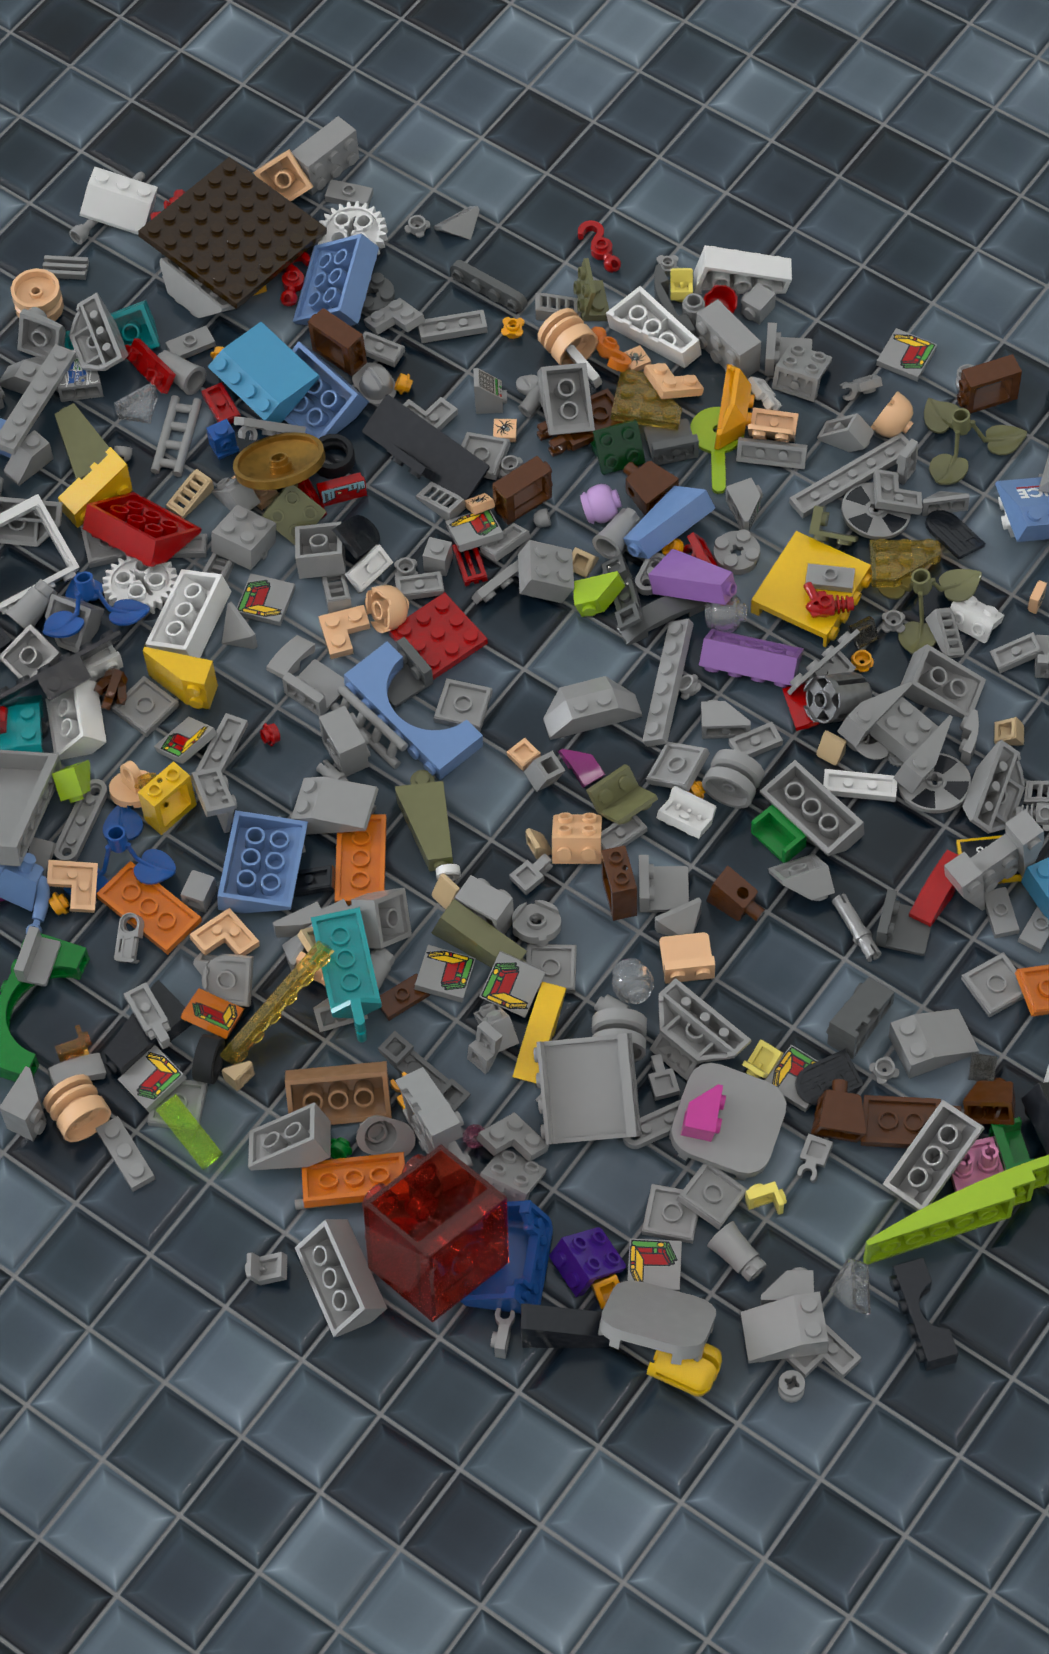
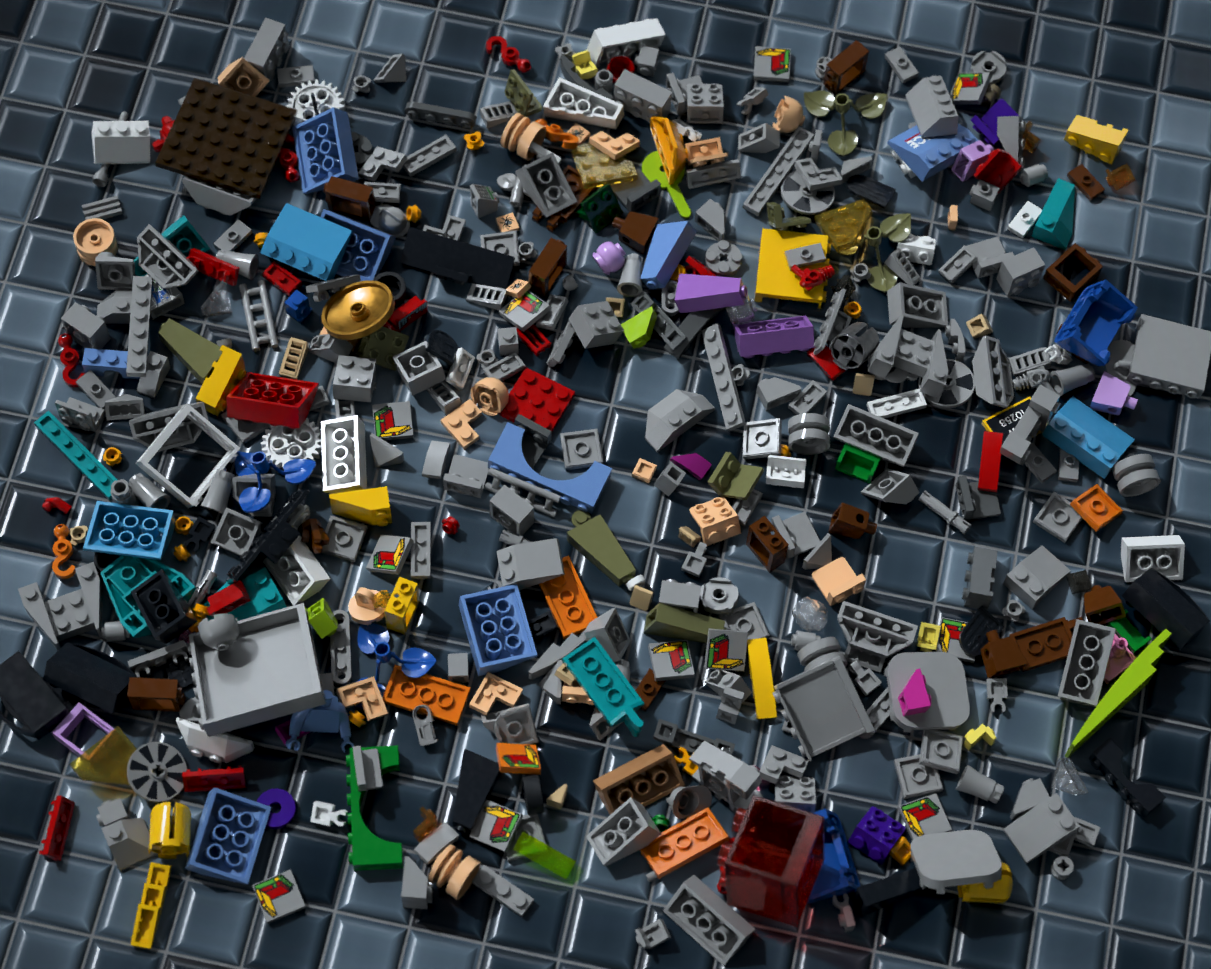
camera: 30 degrees left, 5 degrees up
(149, 1014) = (474, 778): light grey hinge -> none
(214, 795) = (439, 590): light grey bracket -> none
(282, 997) = (564, 741): clear yellow plate -> none

